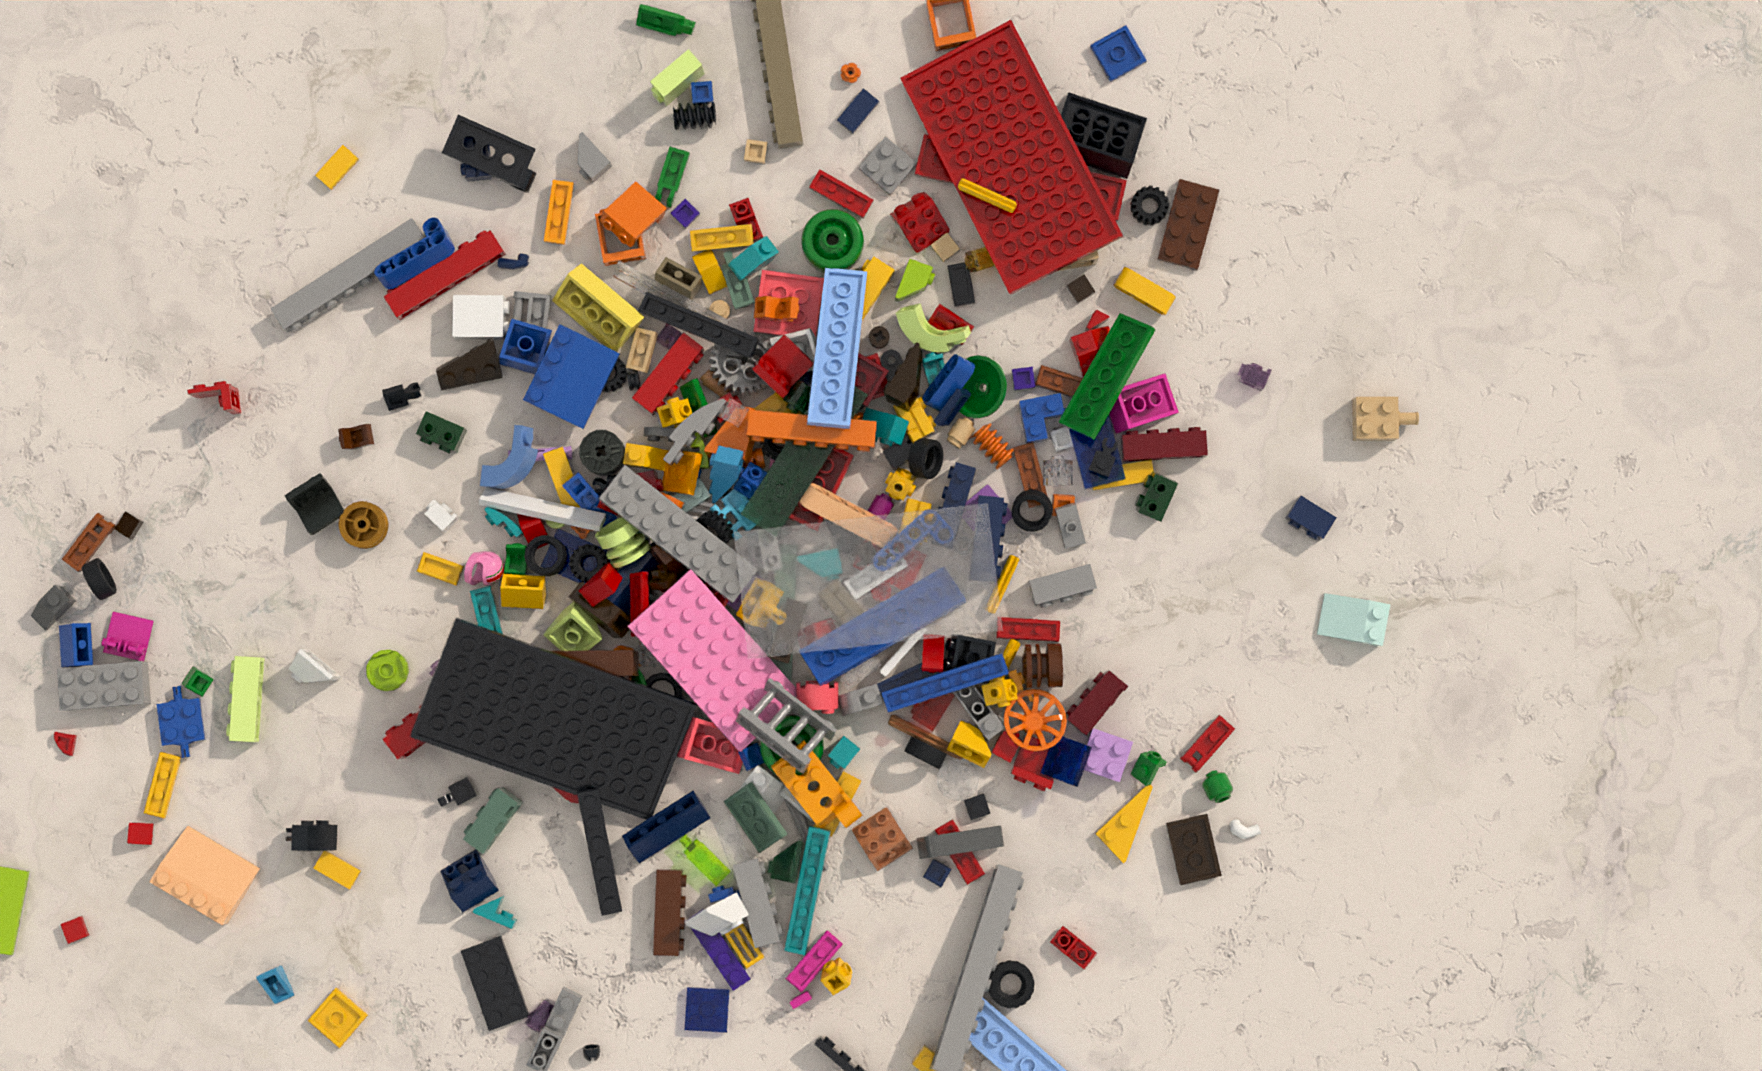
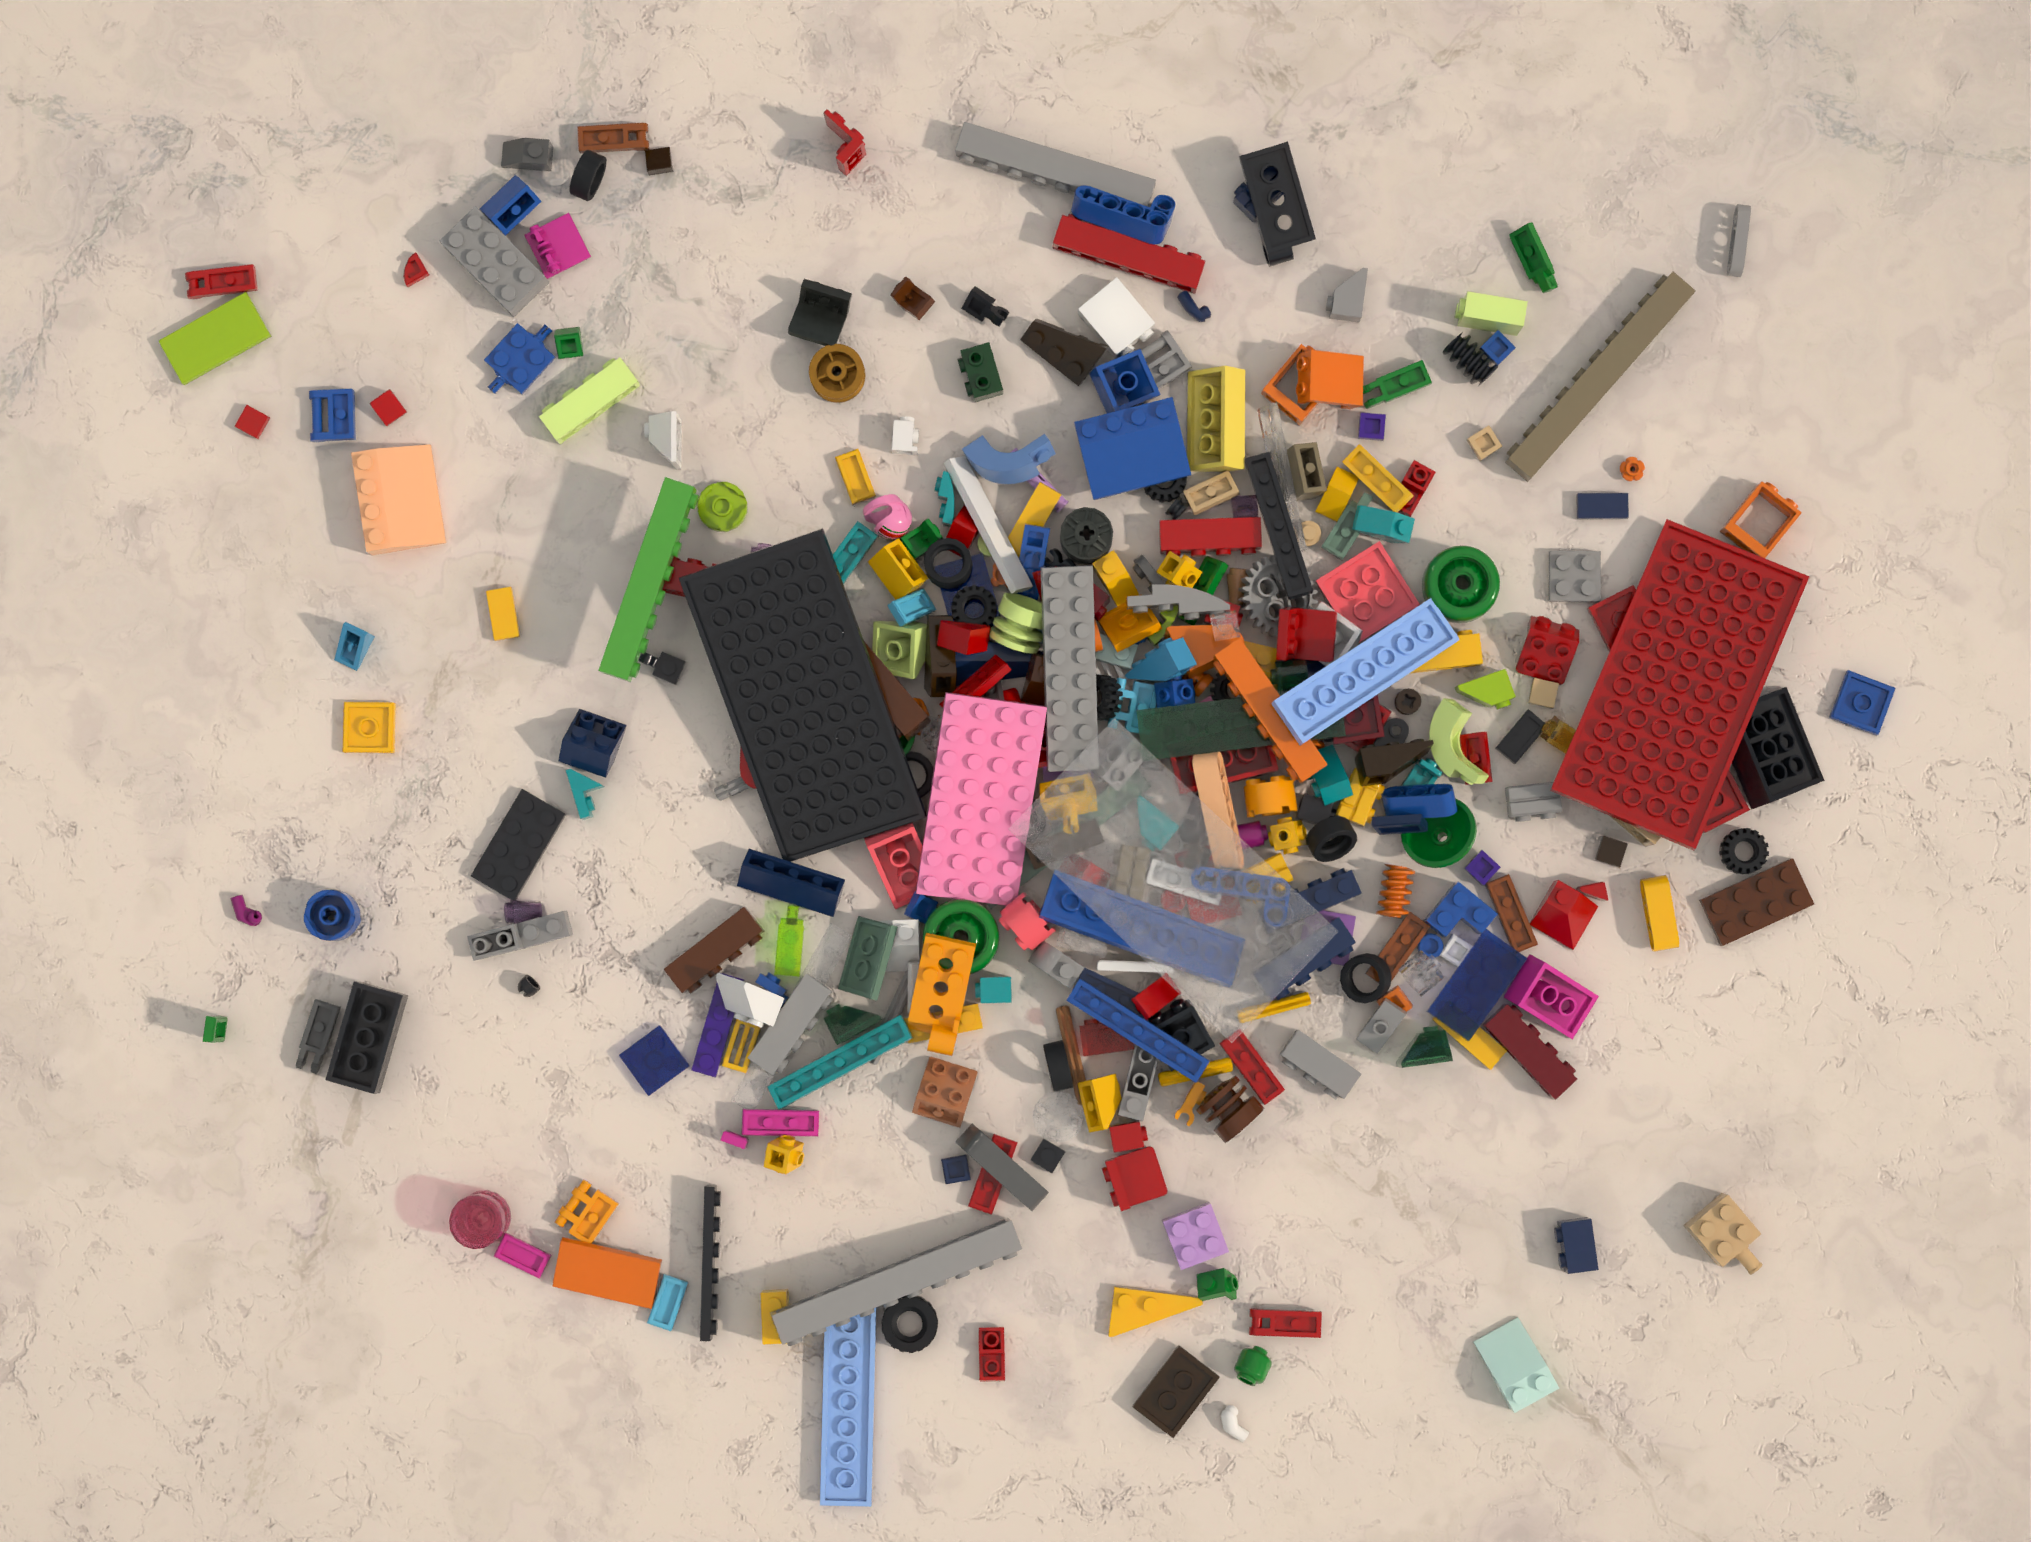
camera: 55 degrees right, 0 degrees up
(119, 869) = (340, 415): none -> blue plate
(162, 785) = (448, 390): yellow tile -> none
(313, 836) = (514, 567): black brick -> none
(337, 167) = (1145, 72): yellow tile -> none
(394, 757) = (648, 579): none -> bright green brick
(492, 819) = (665, 717): sand green wedge -> none
(554, 602) = (911, 607): none -> medium azure tile
(558, 212) = (1274, 309): light orange plate -> none
(574, 813) = (732, 787): none -> light grey axle
(599, 851) = (717, 840): black plate -> none
(662, 578) = (1016, 687): dark brown tile -> none
(776, 308) = (1354, 584): orange brick -> none
(783, 744) = (953, 925): light grey fence -> none
(841, 194) = (1512, 555): red plate -> none
(867, 475) = (1270, 797): none -> light orange brick
(960, 432) = (1382, 851): tan brick -> none
(987, 195) = (1625, 692): yellow axle -> none
(999, 692) = (1171, 1088): yellow brick -> none
(1006, 312) = (1532, 800): none -> light grey brick
(1035, 721) = (1171, 1143): orange wheel -> none
(1045, 451) = (1431, 945): none -> blue tile
(1066, 761) = (1160, 1203): clear blue plate -> none
(1095, 701) = (1237, 1185): dark red wedge -> none
(1103, 461) = (1467, 1006): black plate -> none
(1107, 376) = (1550, 944): green plate -> none
(1108, 509) = (1426, 1048): none -> clear green slope
(1156, 496) = (1476, 1083): dark green brick -> none
(1253, 376) = (1666, 1081): clear purple brick -> none

